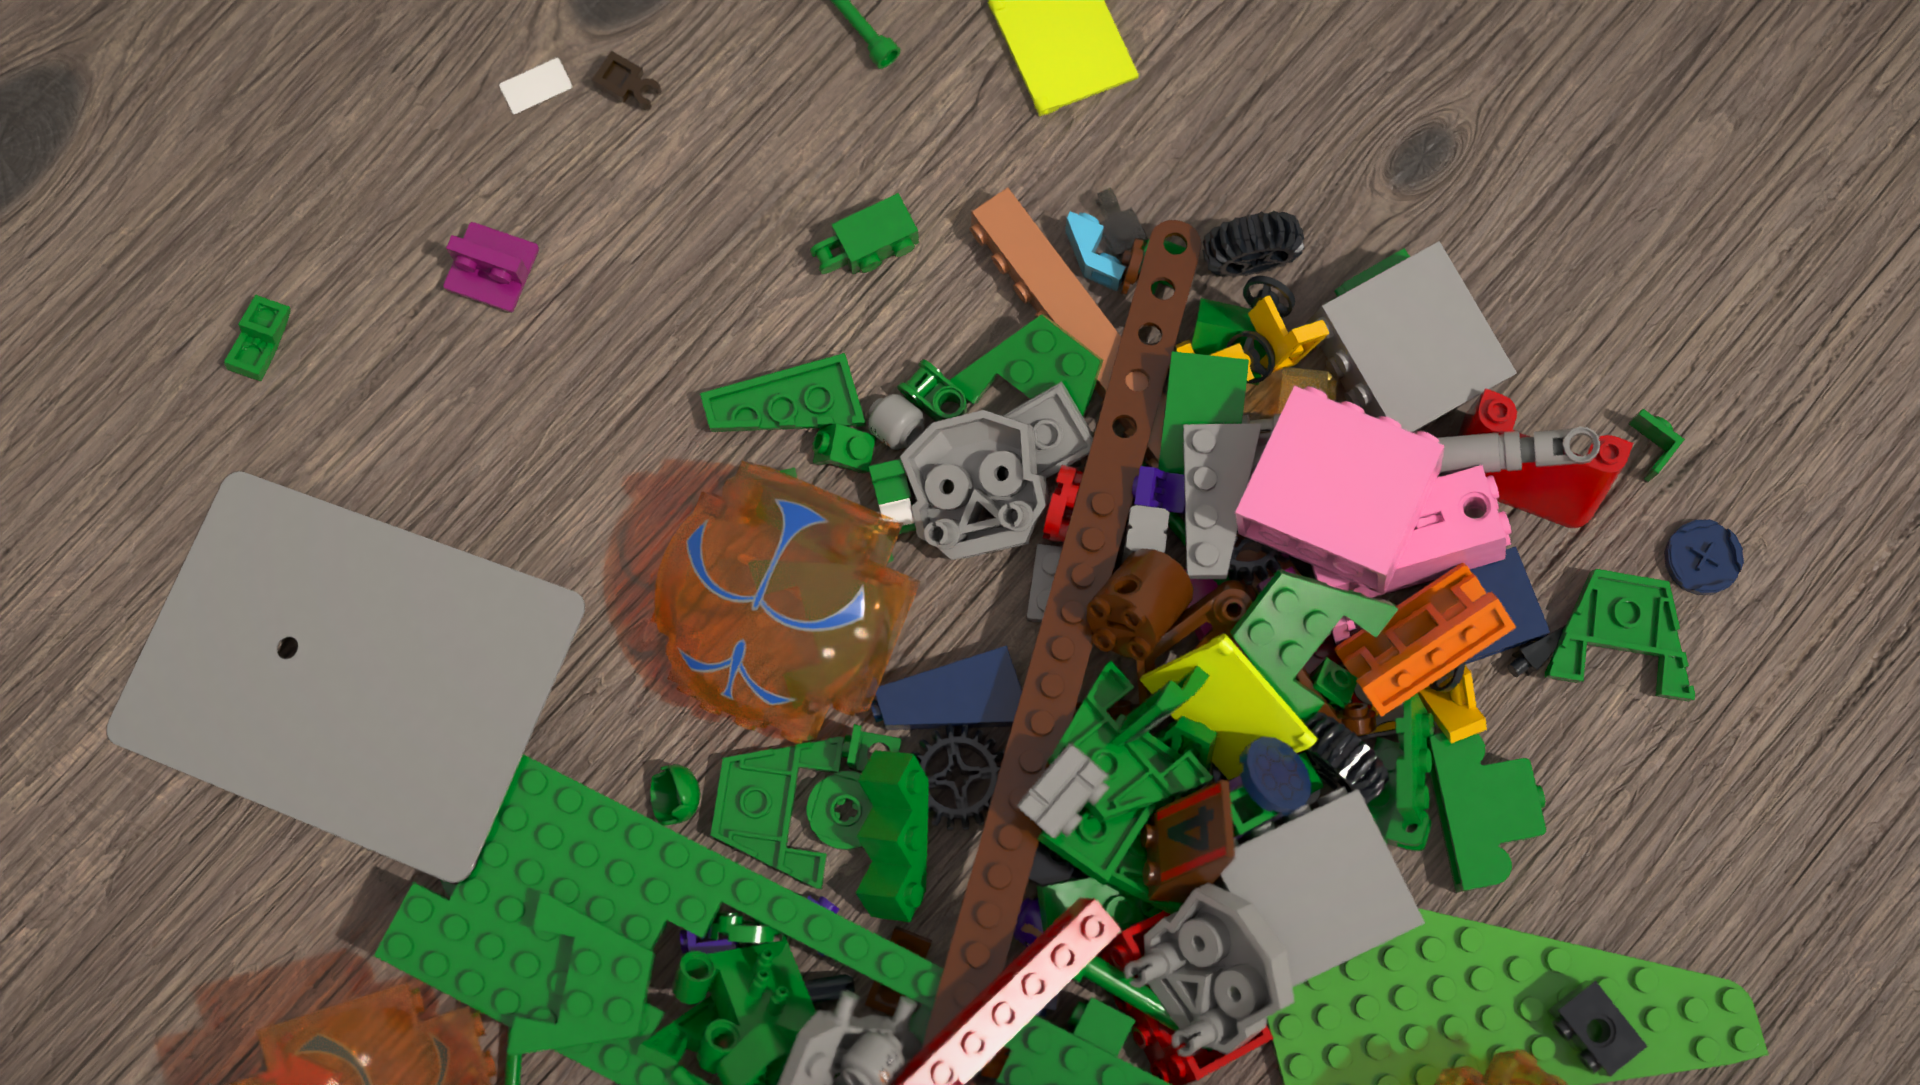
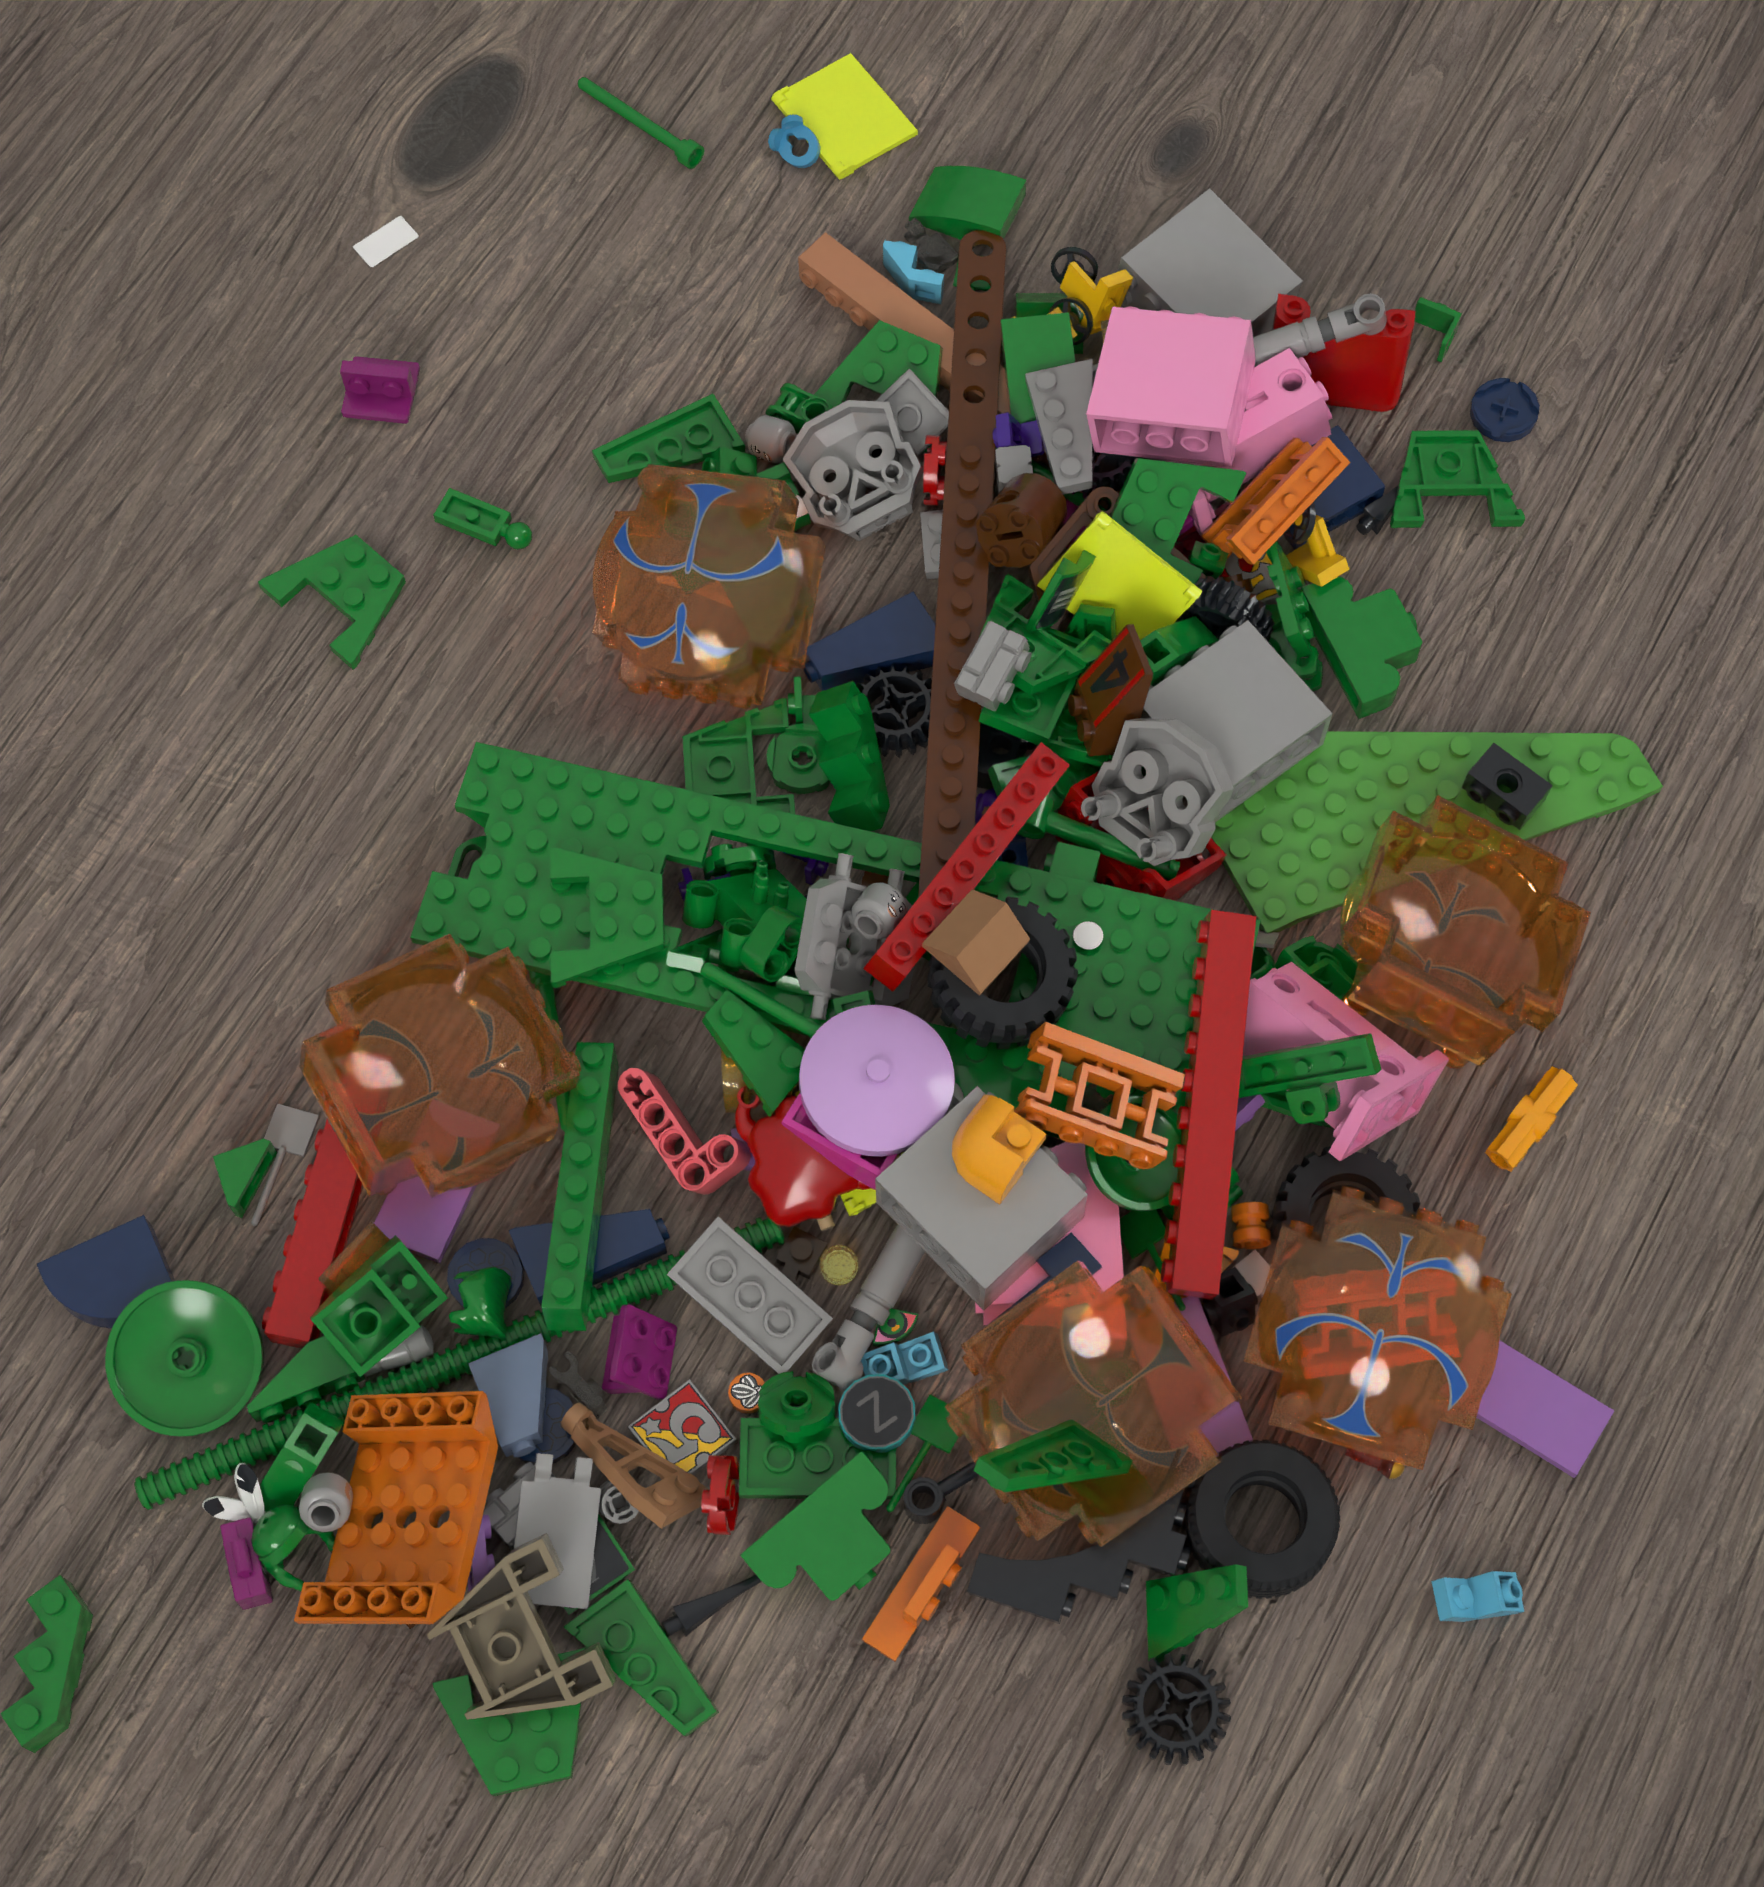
camera: 10 degrees left, 10 degrees down
(259, 338) = (183, 487): green slope -> none
(404, 683) = (380, 739): light grey piece -> none
(409, 481) = (350, 579): none -> green wing
(565, 449) = (481, 520): none -> green plate
(623, 78) = (463, 217): dark brown plate -> none
(674, 795) = (648, 765): green hair -> none
(869, 237) = (712, 299): green brick -> none
(984, 58) = (779, 141): none -> dark azure piece
(1132, 260) = (948, 268): reddish brown piece -> none
(1173, 178) = (969, 200): none -> green slope
(1253, 244) = (1048, 230): black gear -> none
(1275, 776) = (1173, 624): dark blue tile -> none

